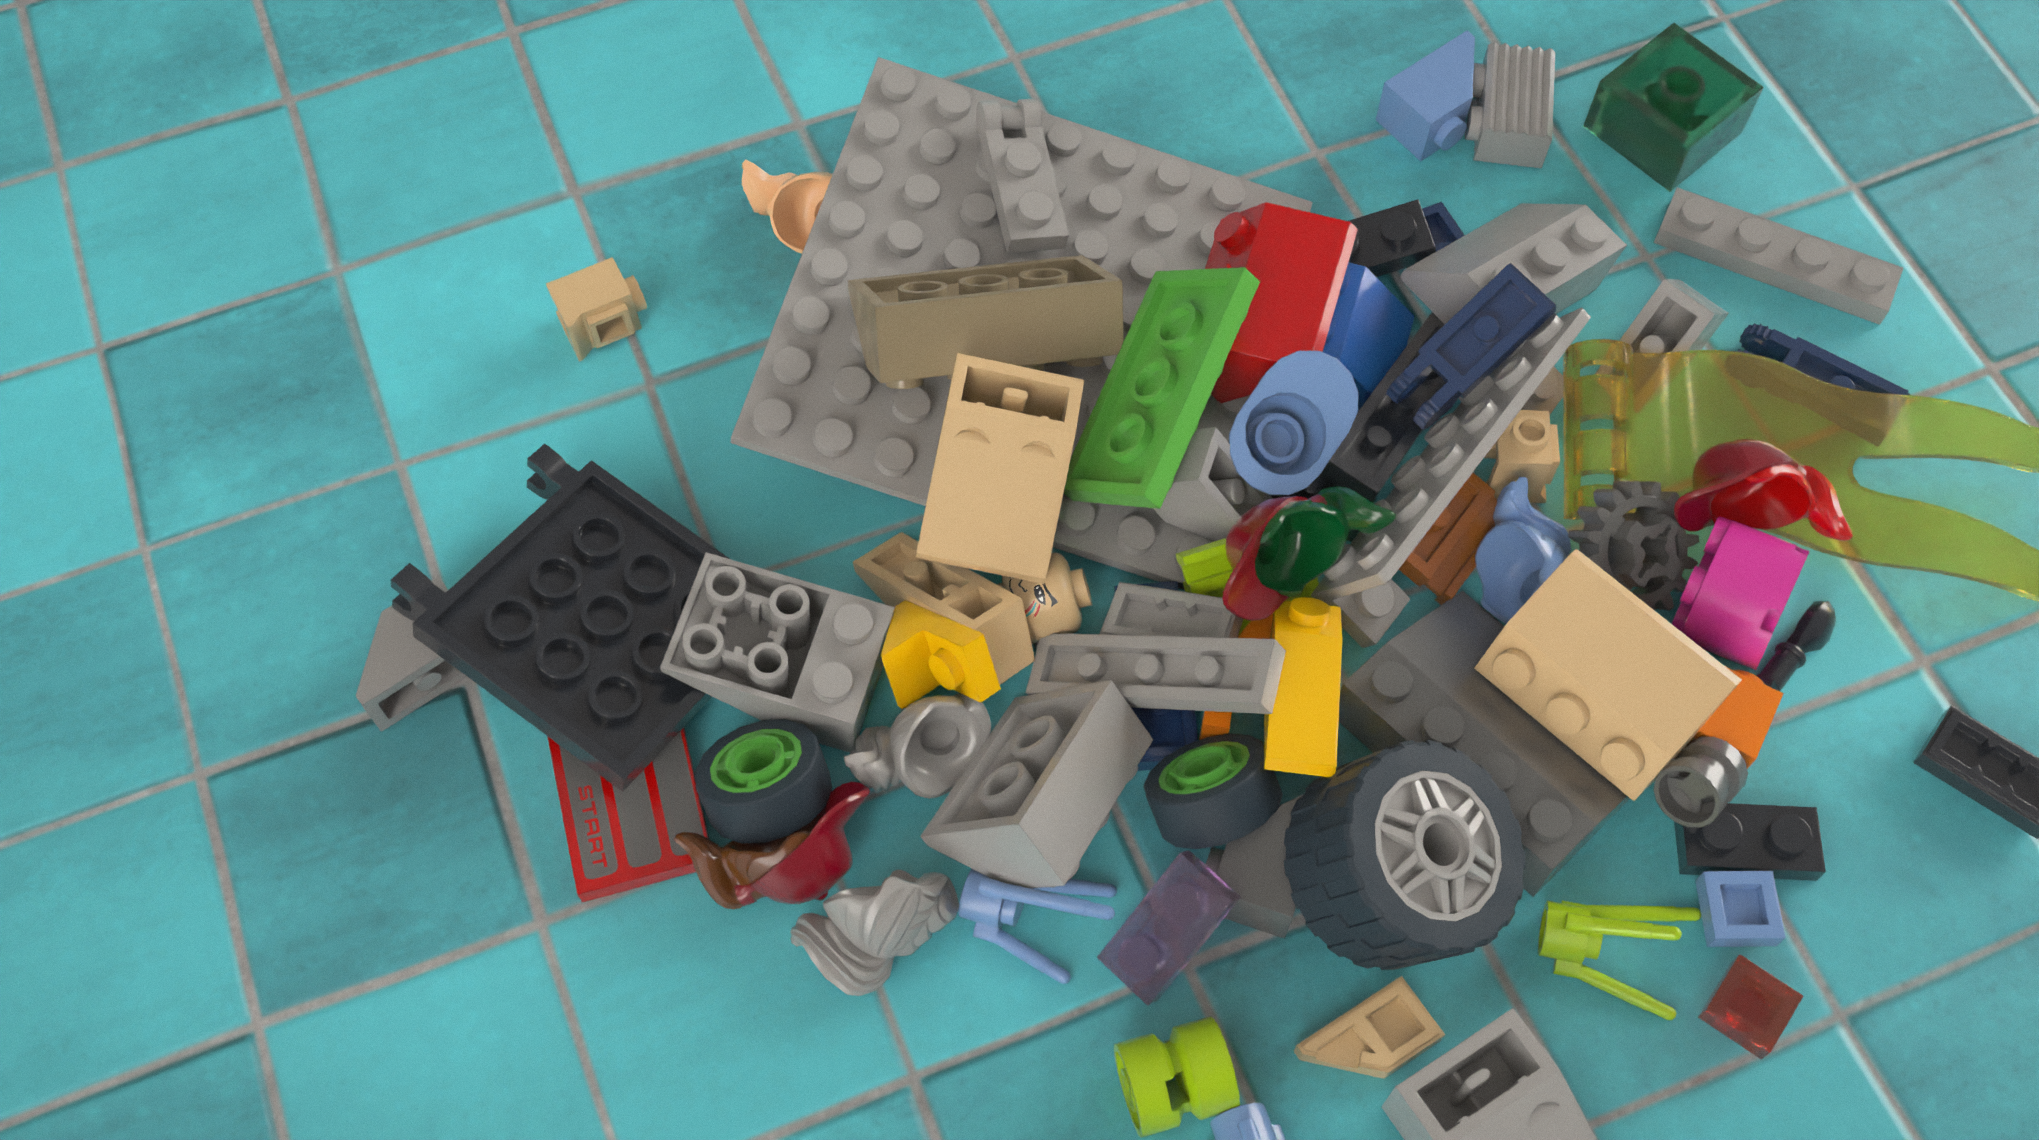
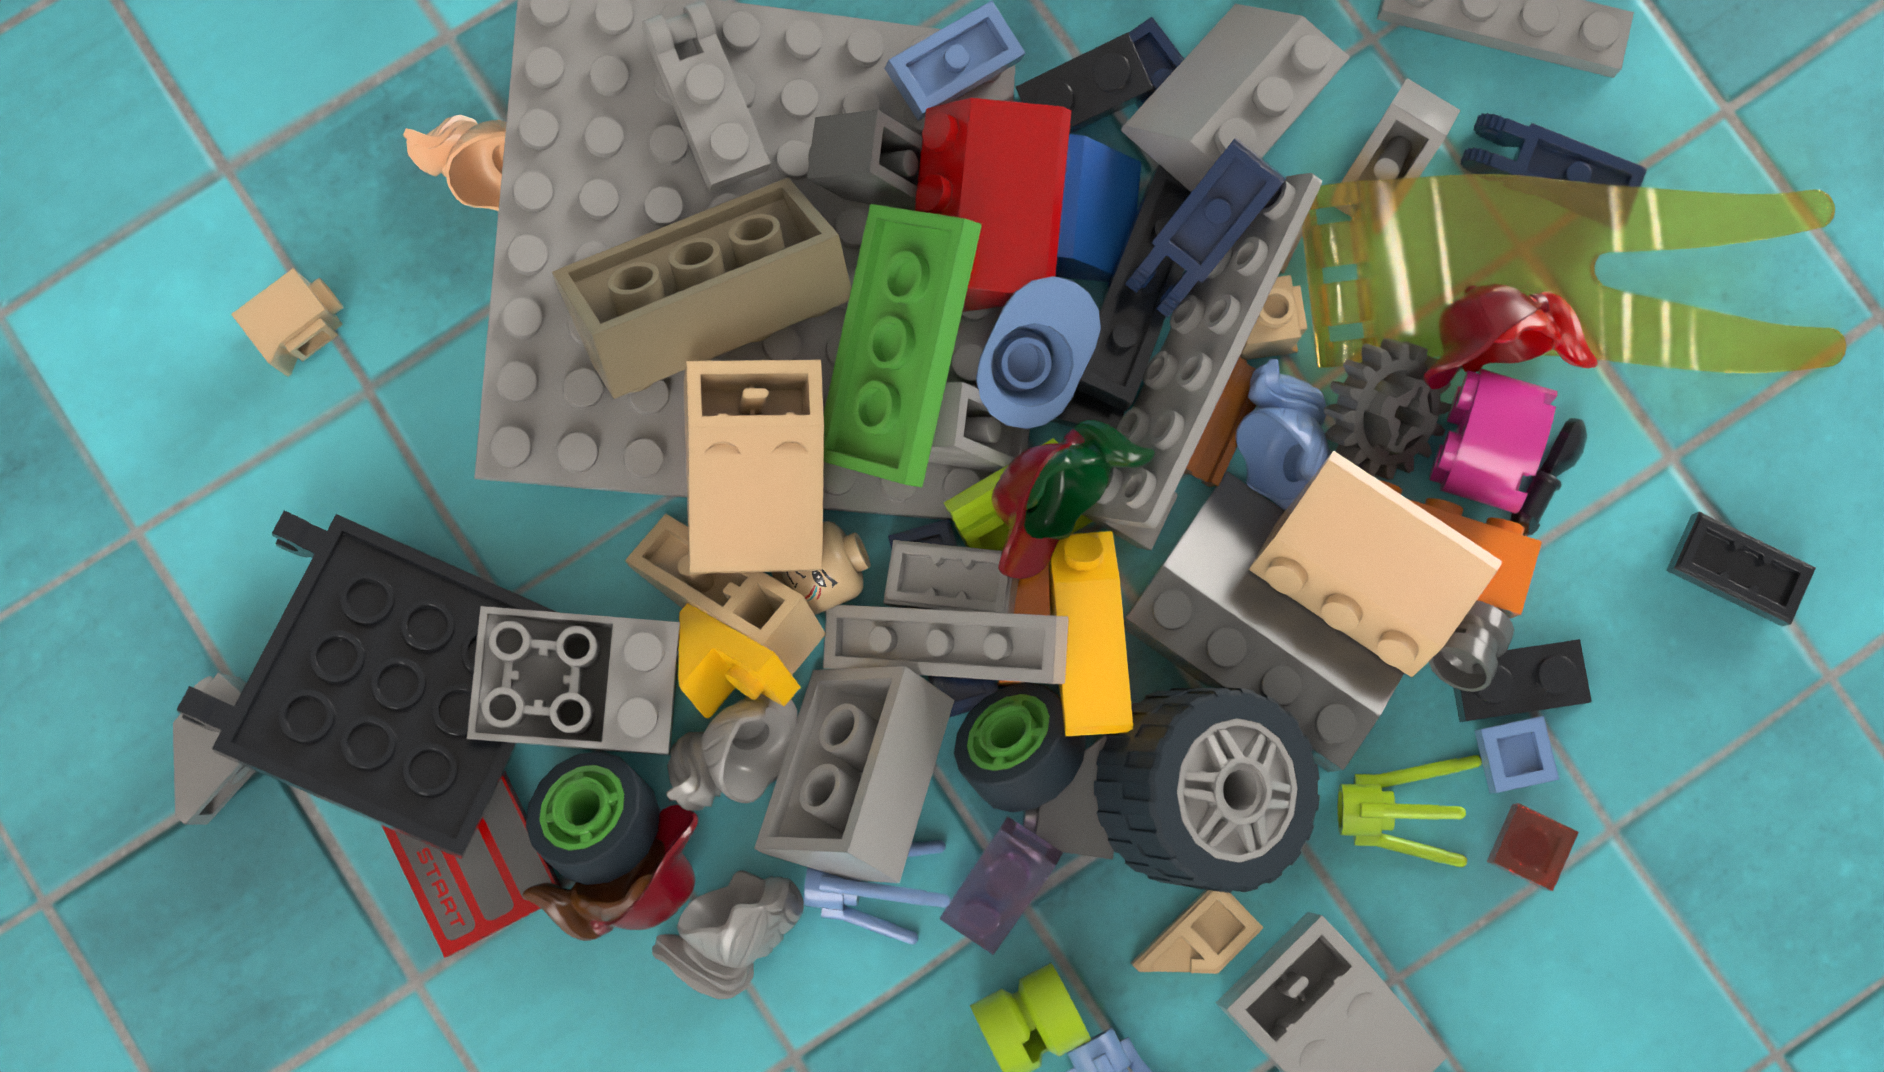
camera: 15 degrees left, 20 degrees up
(1154, 237) = (866, 158): none -> dark grey slope
(1237, 188) = (954, 60): none -> medium blue plate

